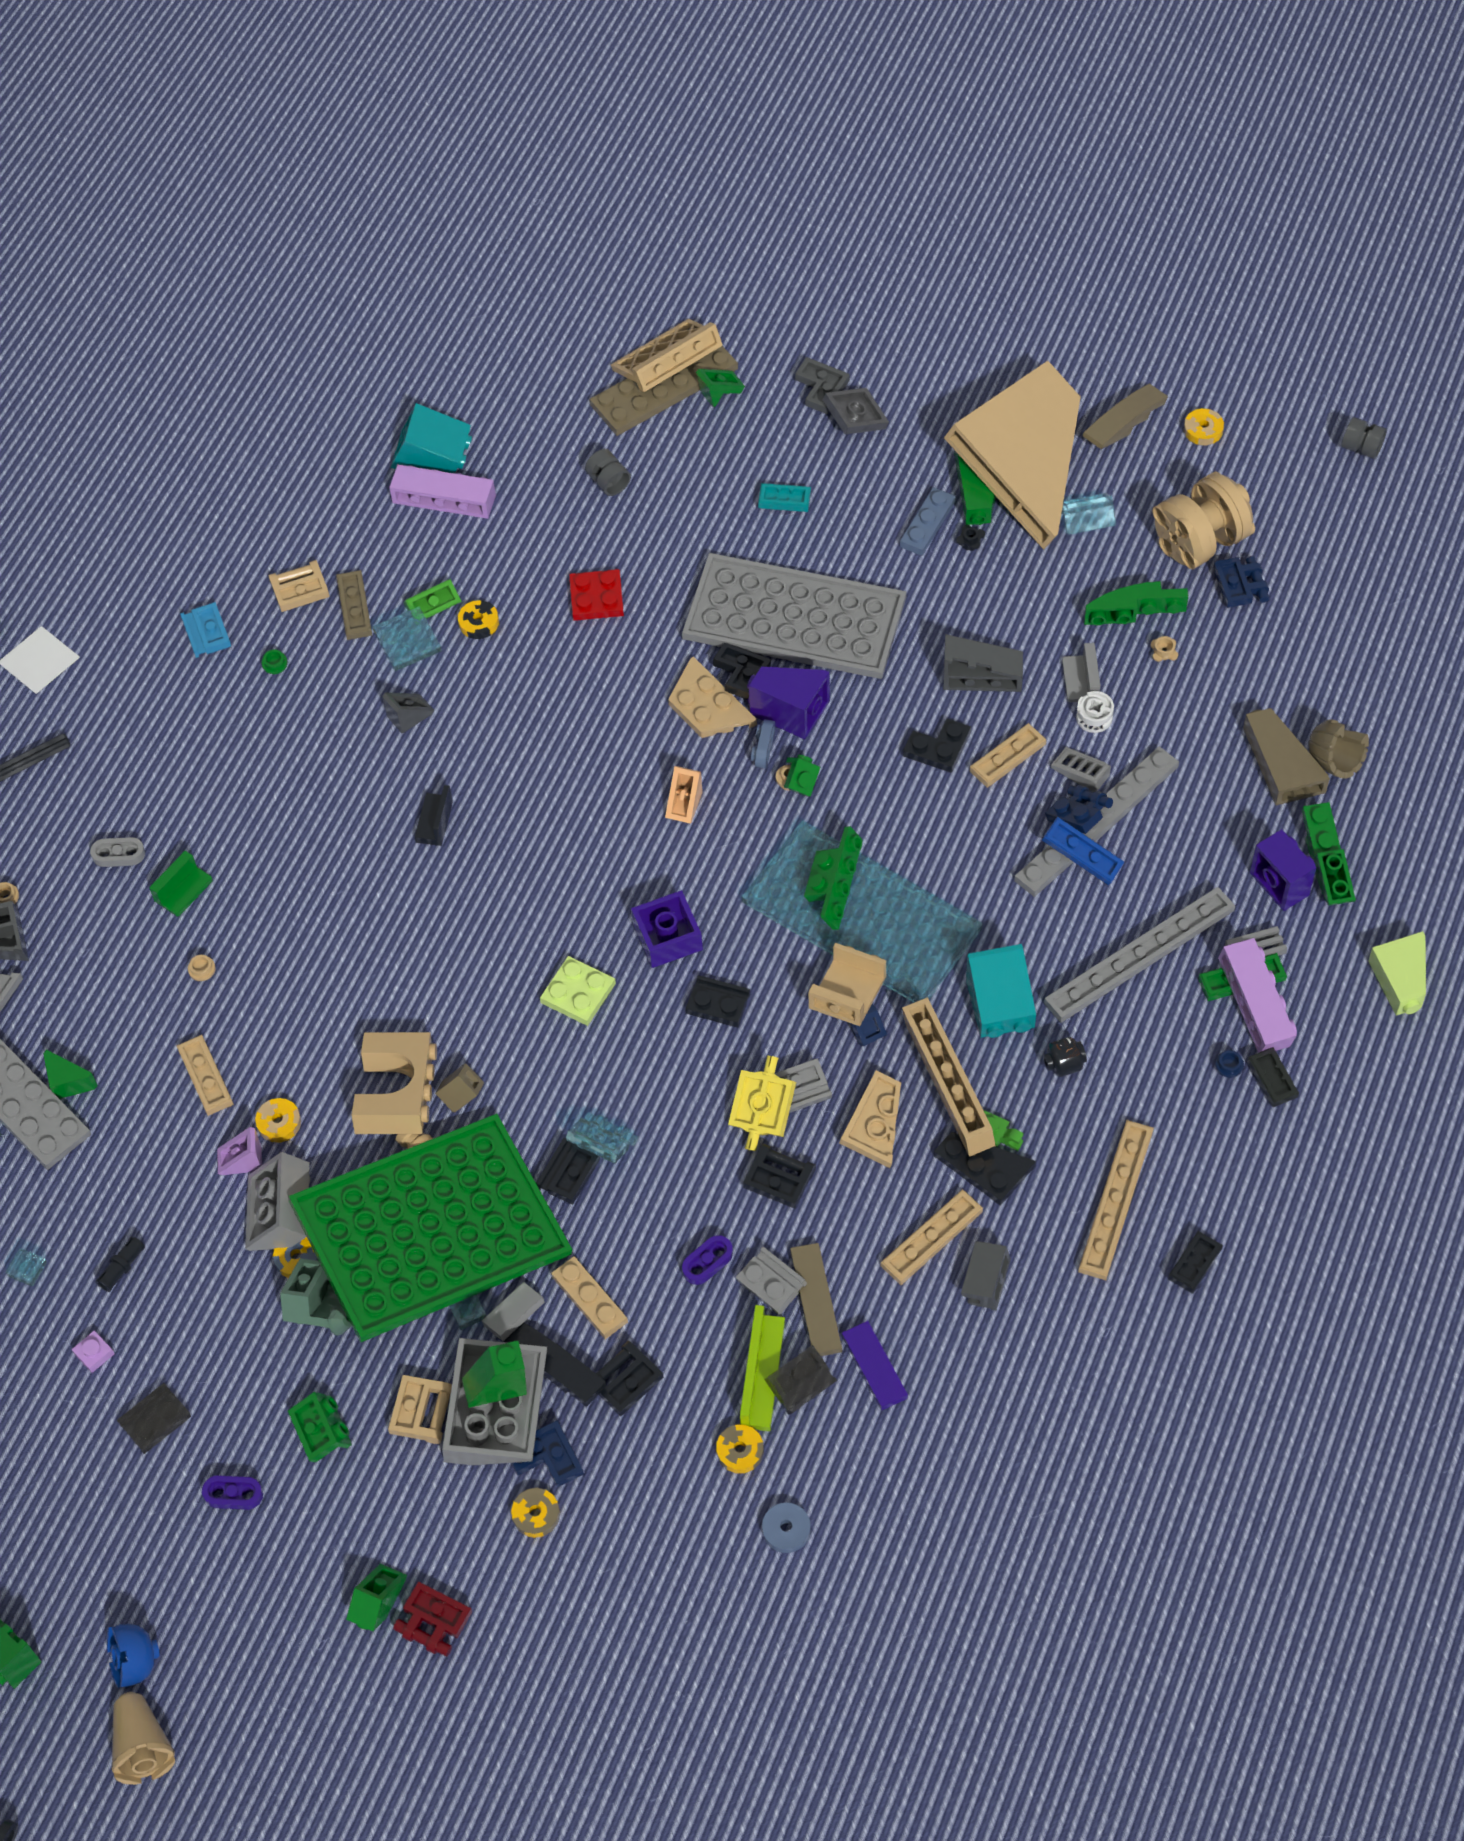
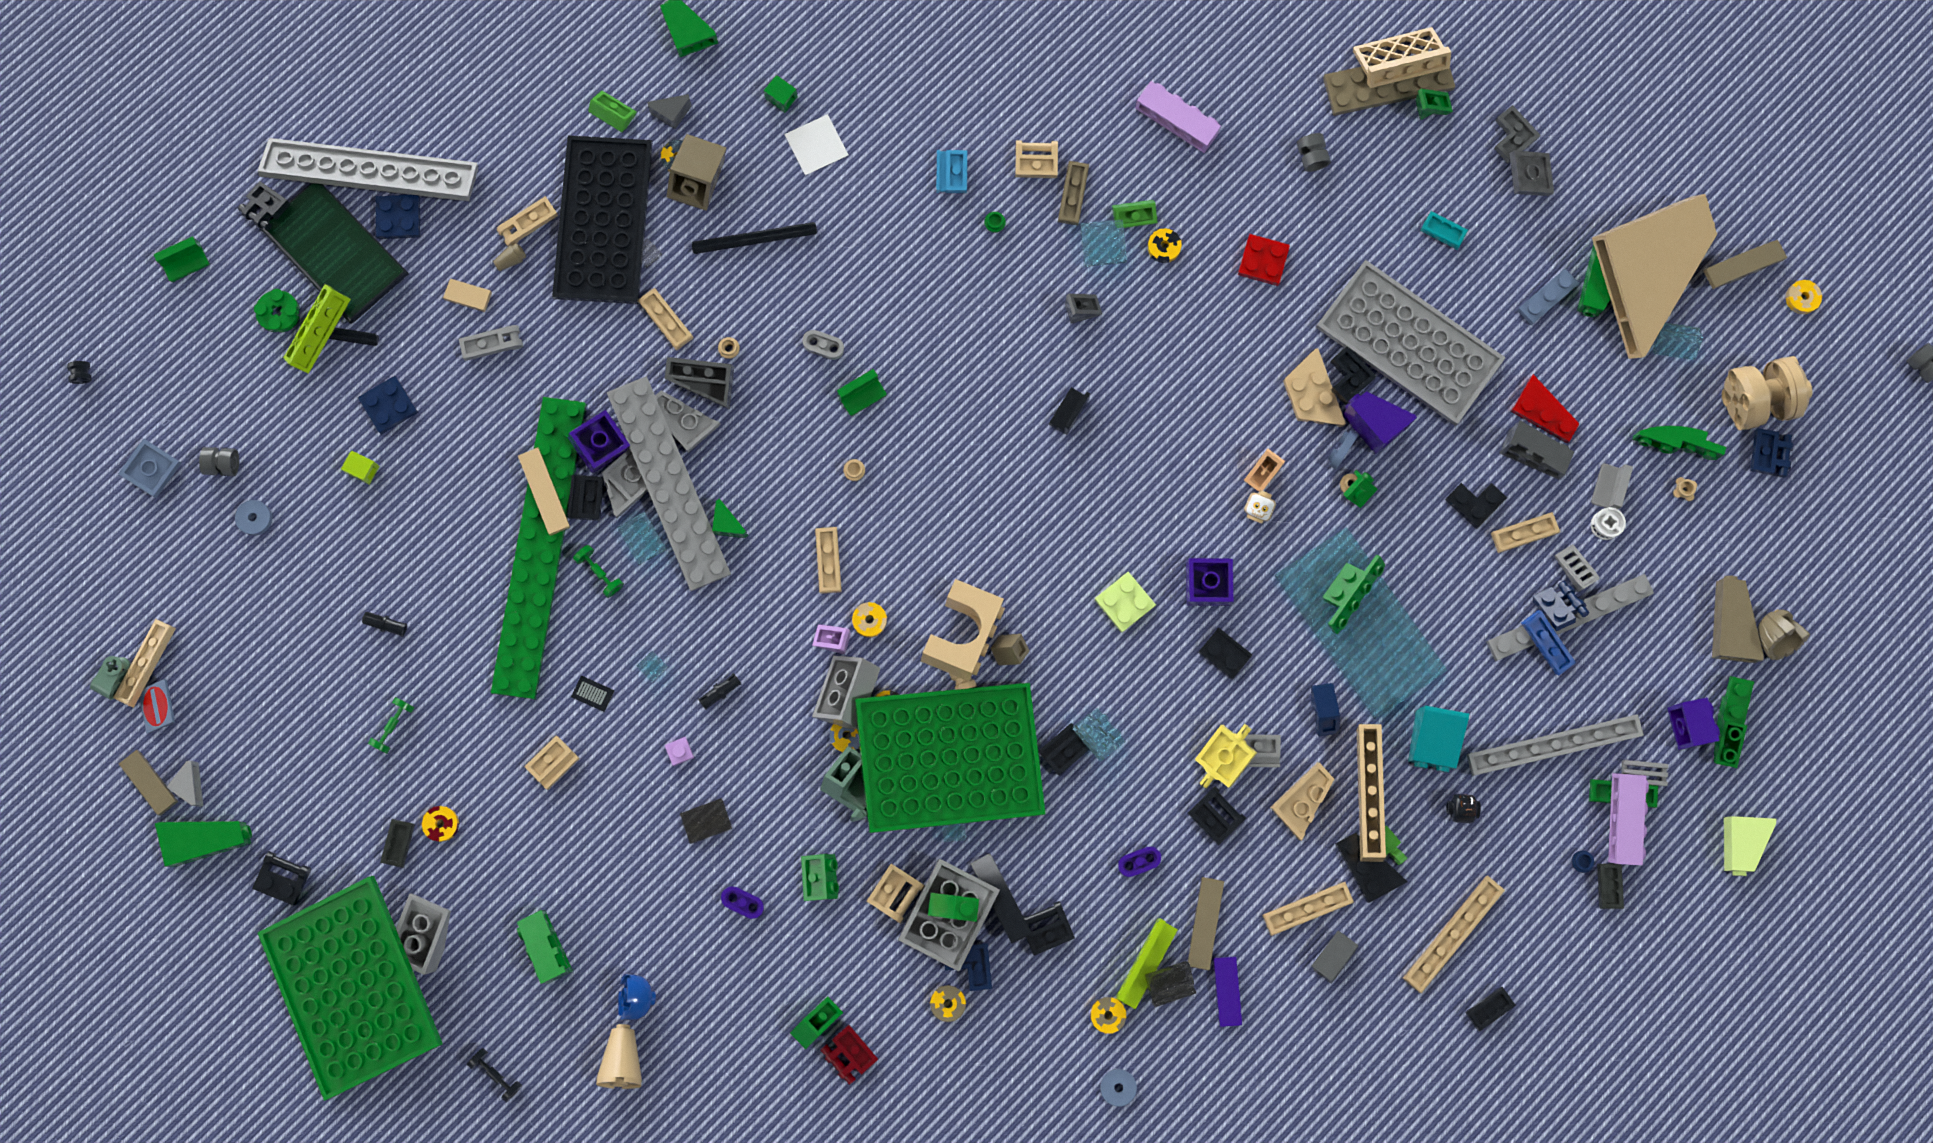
camera: 15 degrees right, 20 degrees up
(432, 441) = (1184, 68): teal slope -> none
(513, 1311) = (986, 844): light grey tile -> none
(589, 1297) = (1044, 854): tan plate -> none
(693, 834) = (1260, 506): none -> head
(771, 1280) = (1179, 897): light grey plate -> none
(848, 985) = (1326, 688): tan panel -> none
(970, 538) = (1571, 330): black plate -> none
(973, 625) = (1545, 411): none -> red wing

